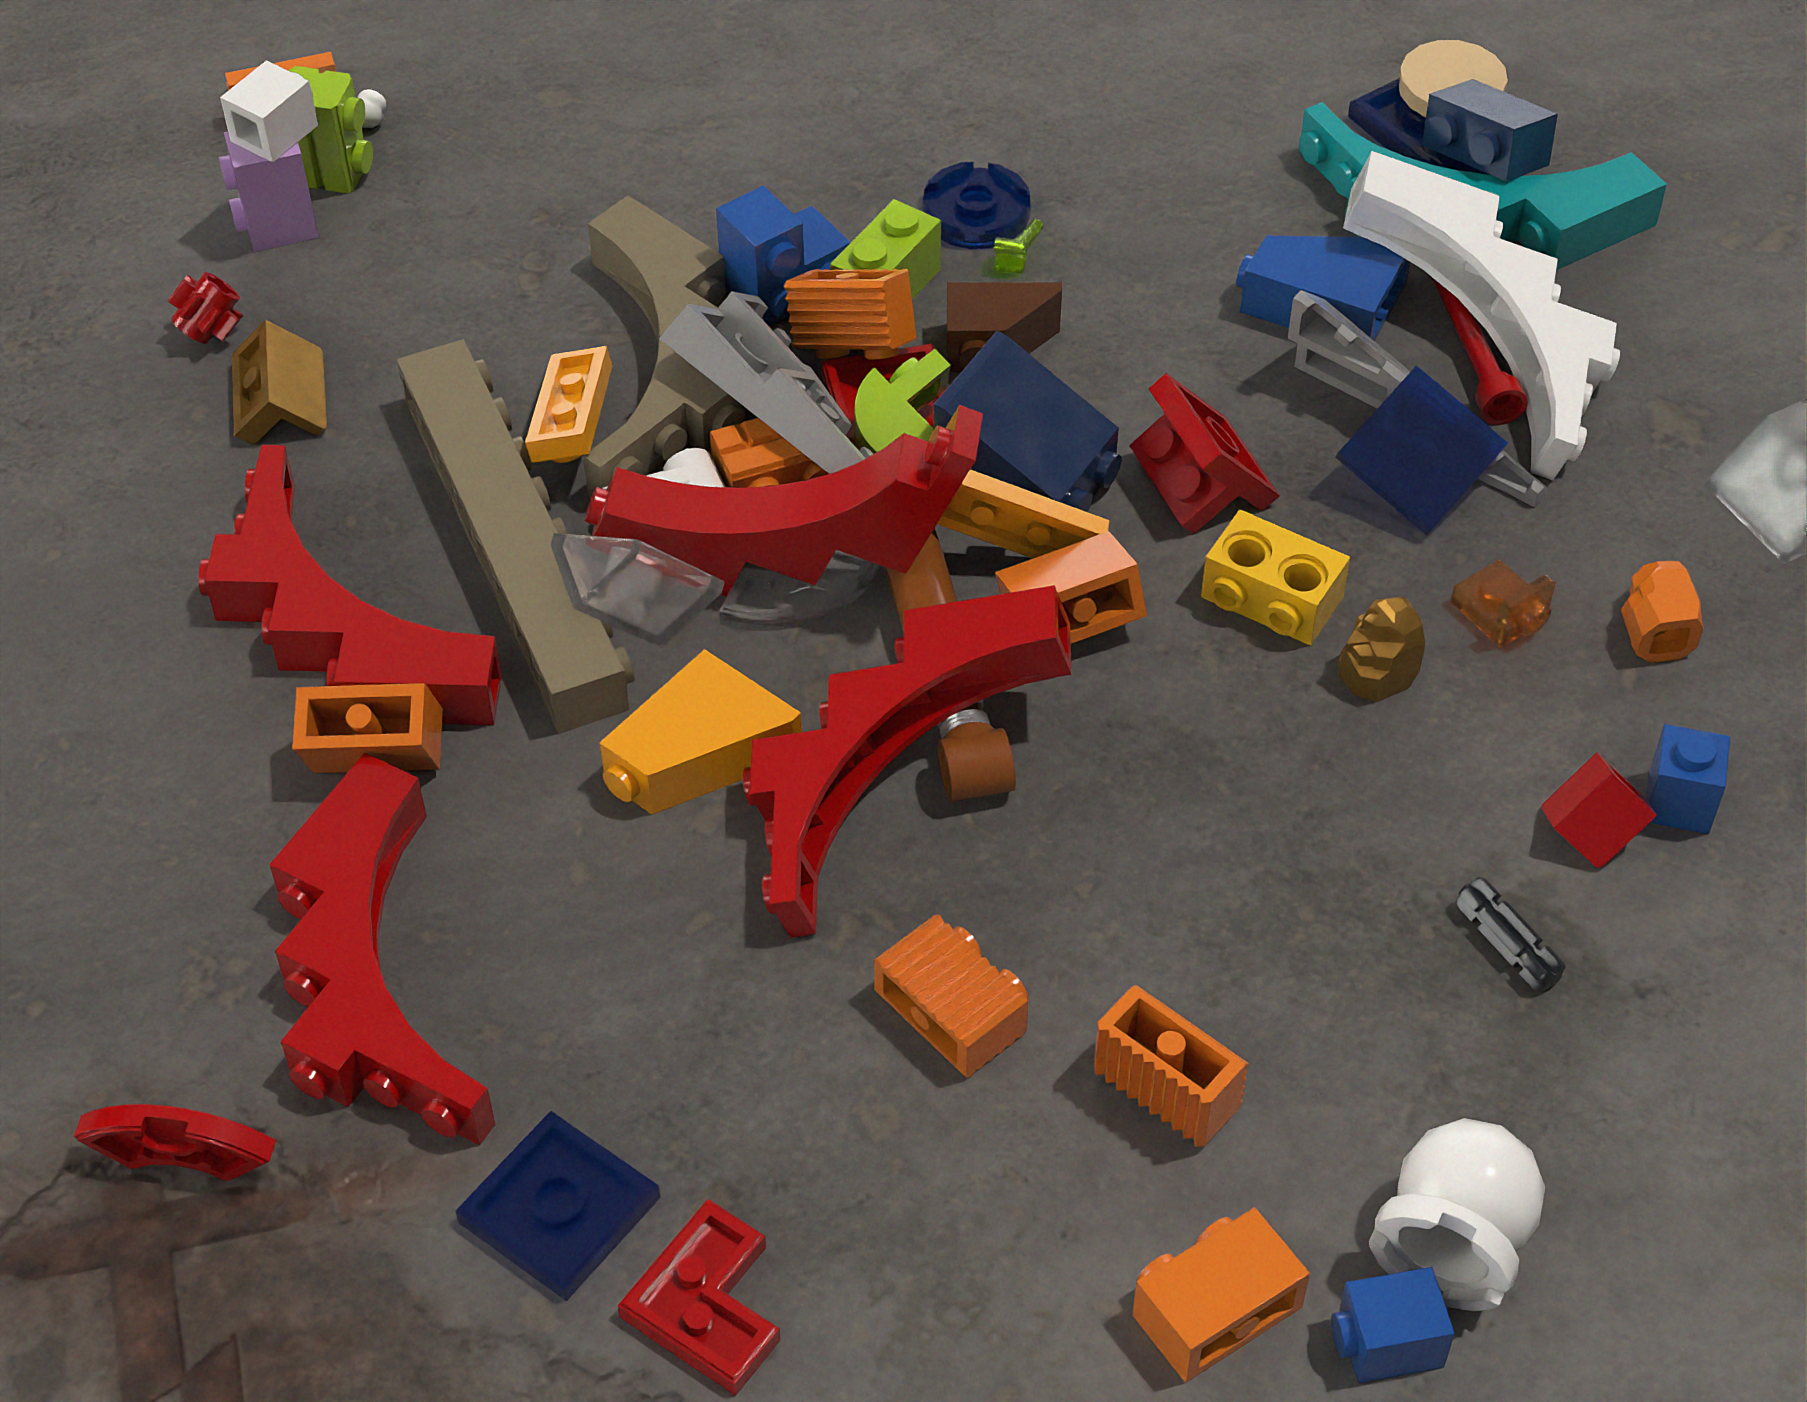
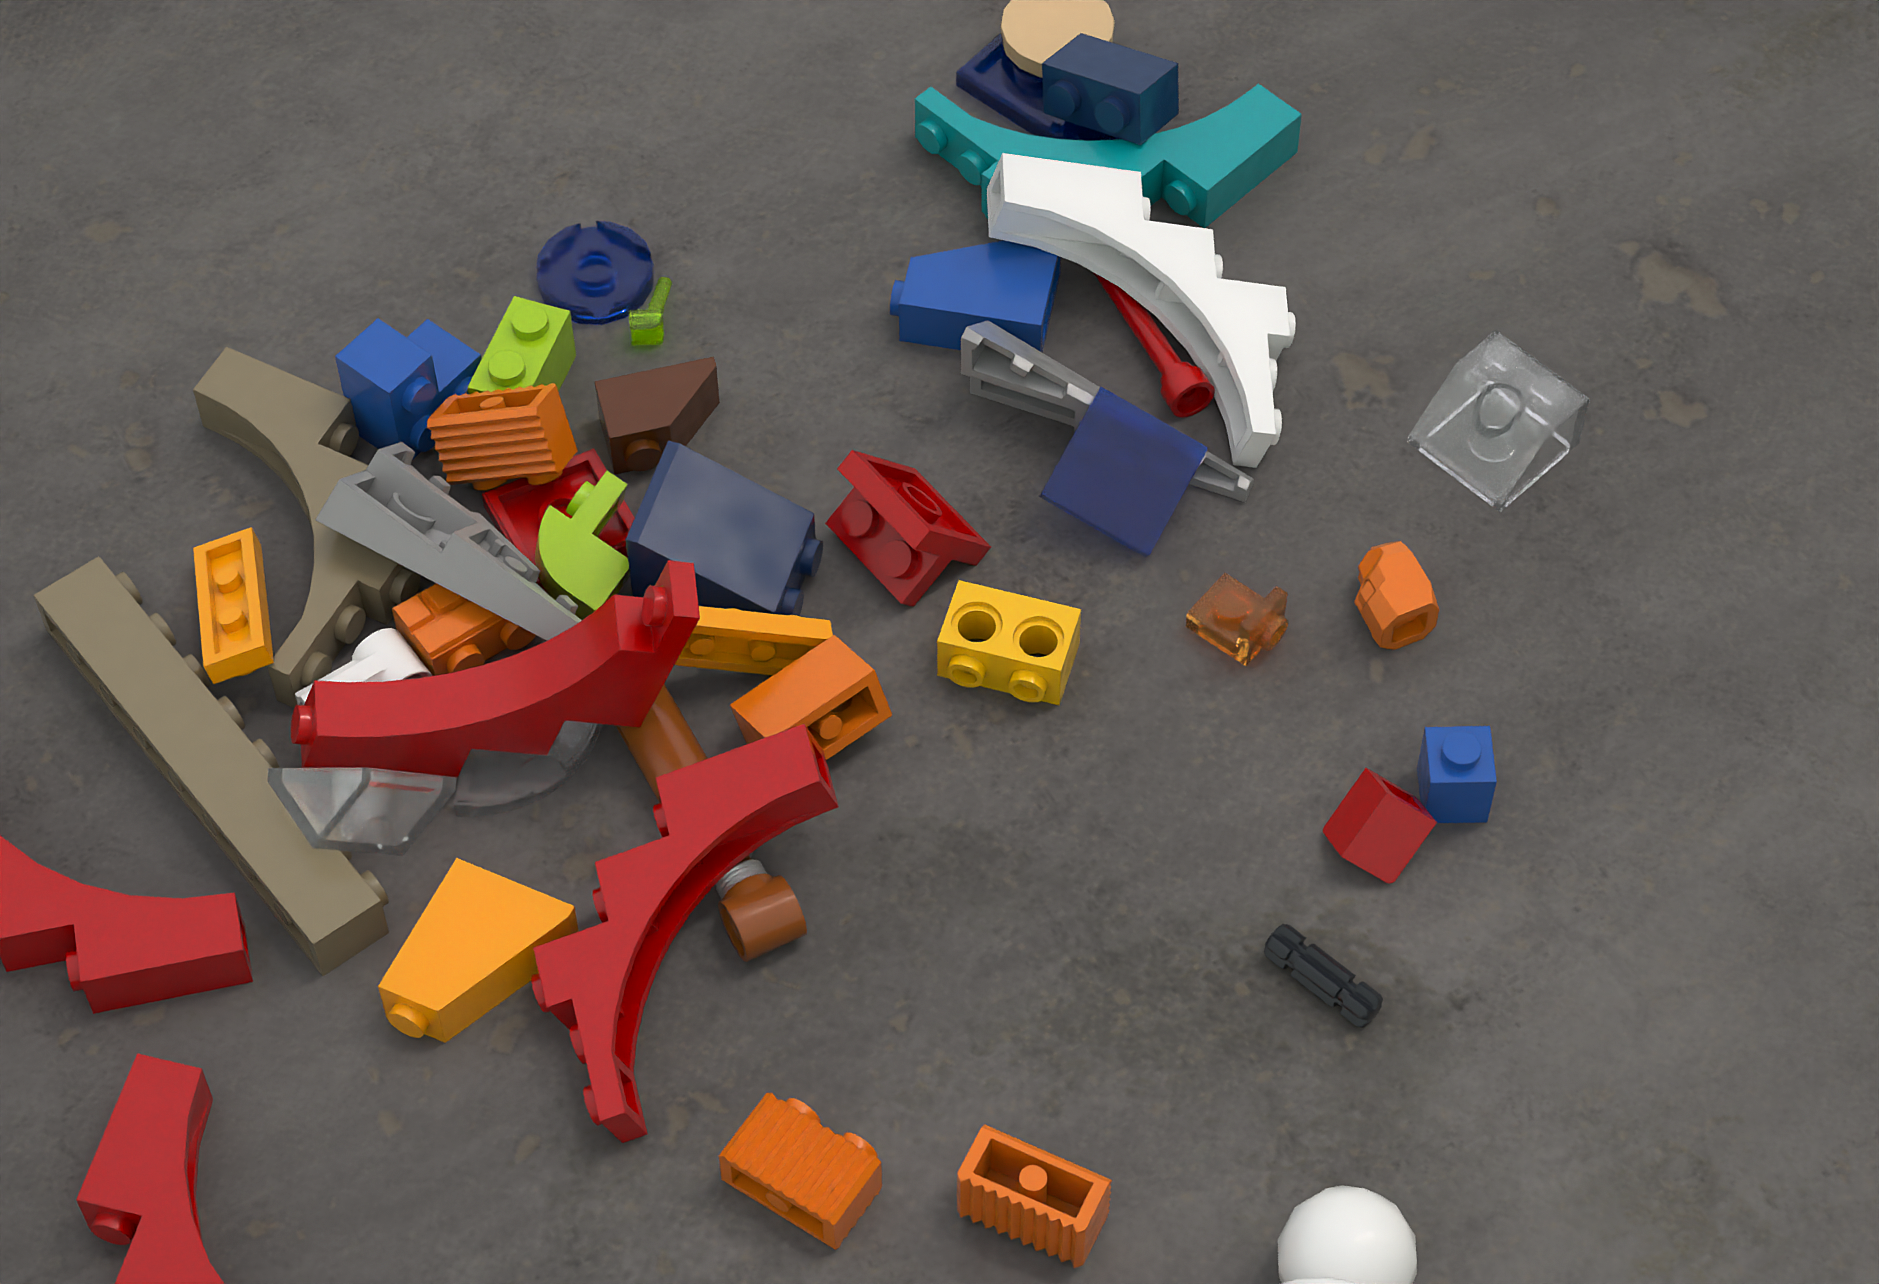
camera: 15 degrees left, 5 degrees up
(384, 720) = (144, 1016): orange brick -> none
(1383, 650) = (1134, 701): pearl gold rock -> none

